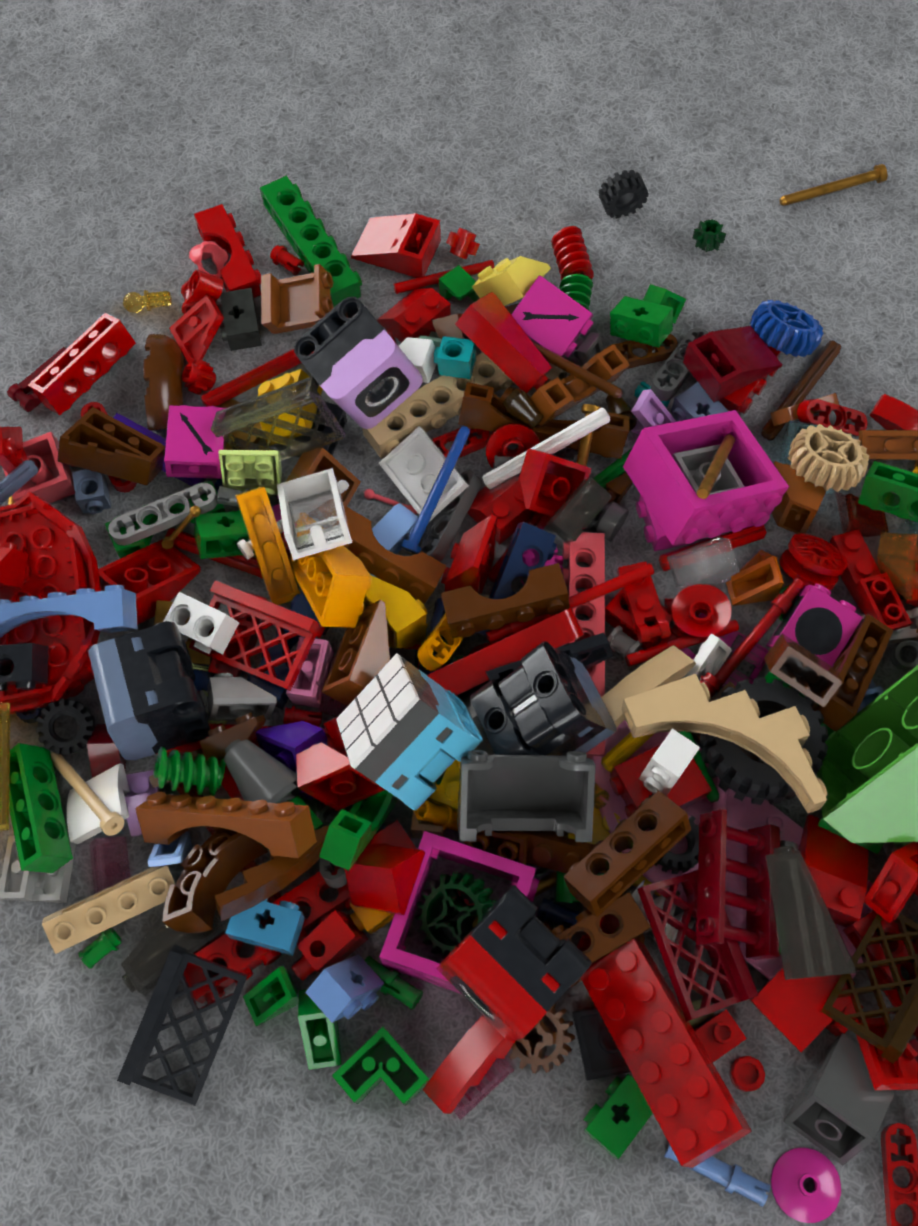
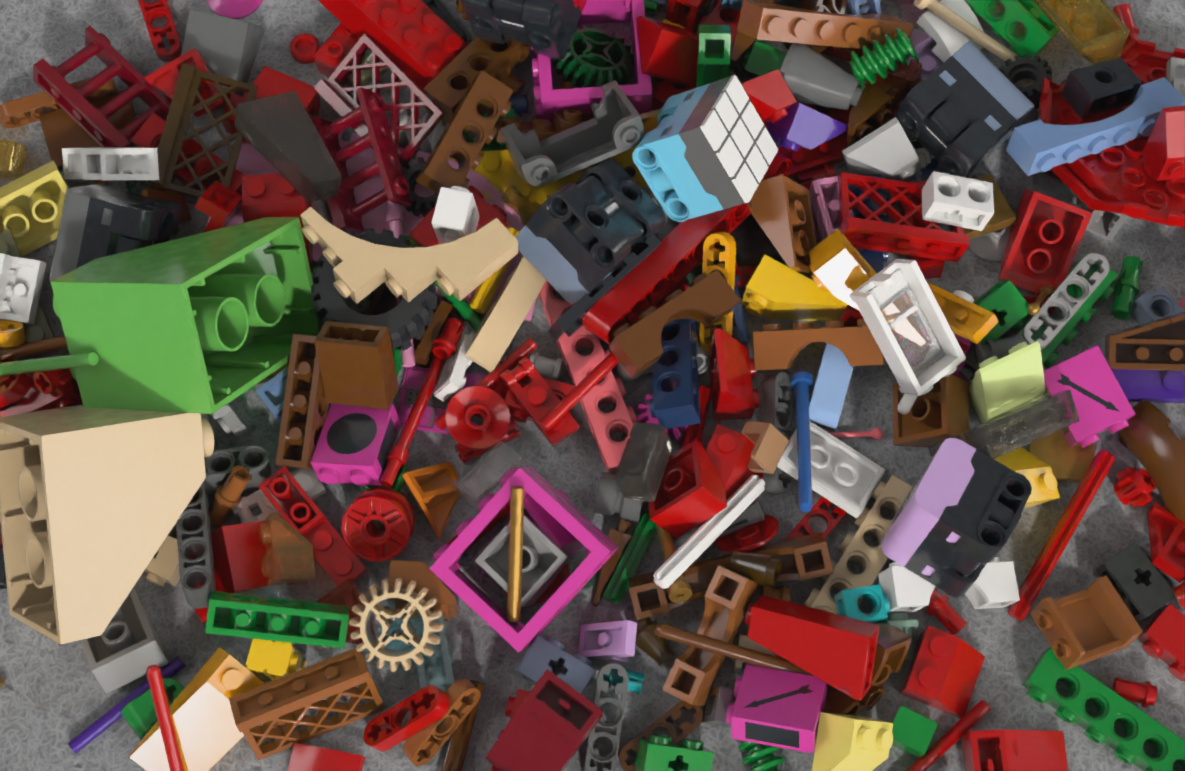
camera: 155 degrees right, 5 degrees up
(107, 514) = (1127, 287): none -> green pin
(472, 493) = (768, 446): none -> medium nougat panel

